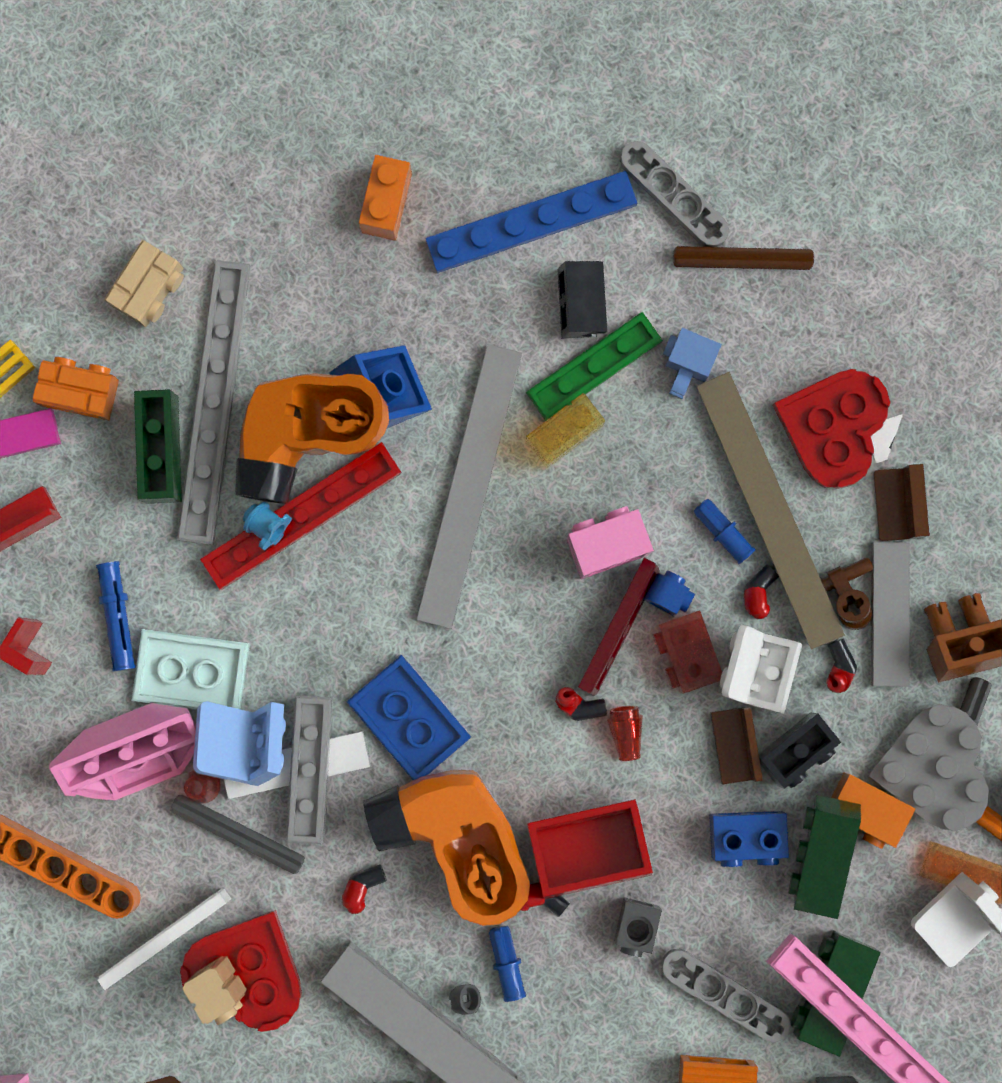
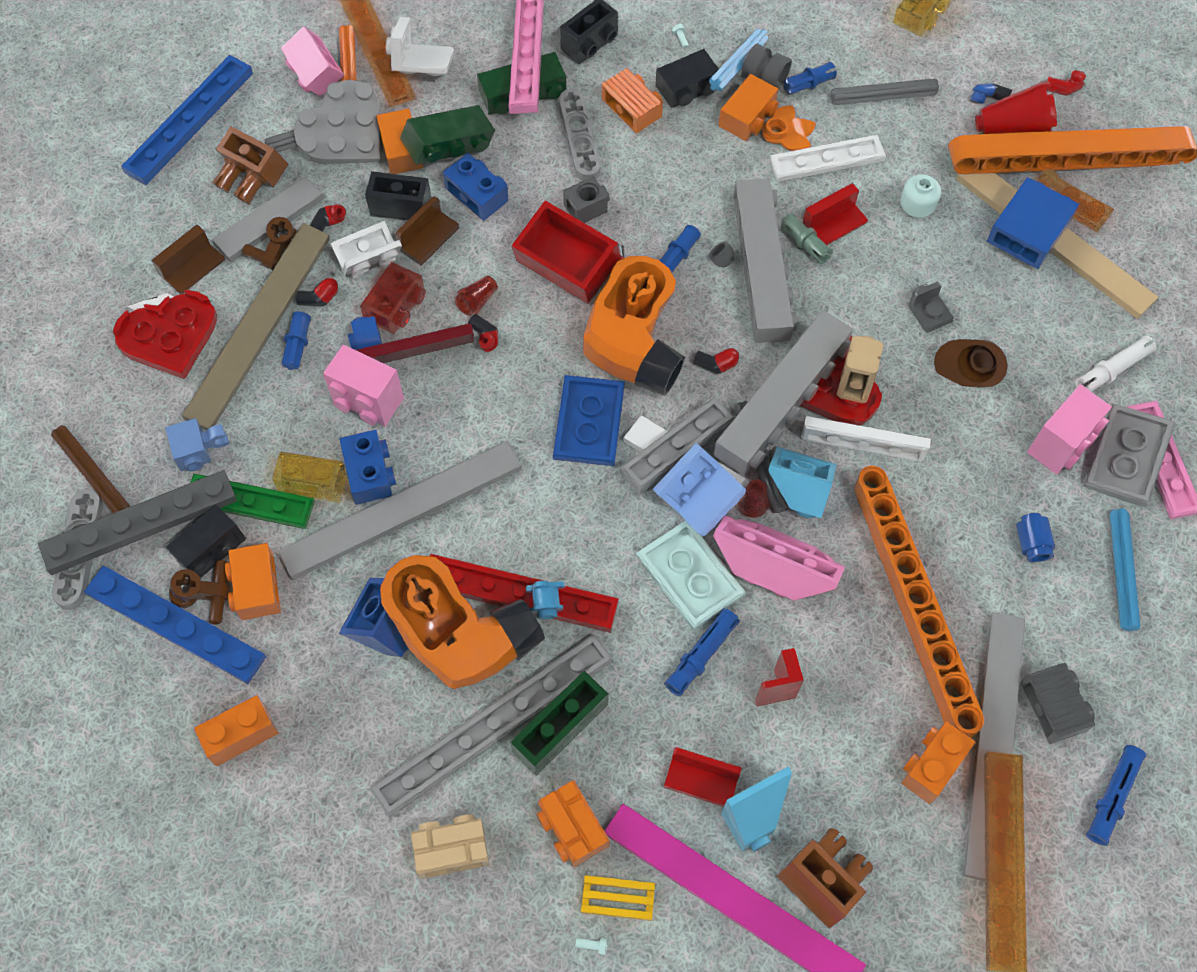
camera: 135 degrees left, 20 degrees down
(178, 846) = (802, 481): none -> medium azure slope
(264, 908) = (783, 392): none -> light grey brick
(508, 309) = (253, 582): none -> orange brick
(529, 275) = (201, 590): none -> reddish brown piece
(532, 487) = (366, 466): none -> blue brick
(649, 258) = (136, 522): none -> dark grey plate

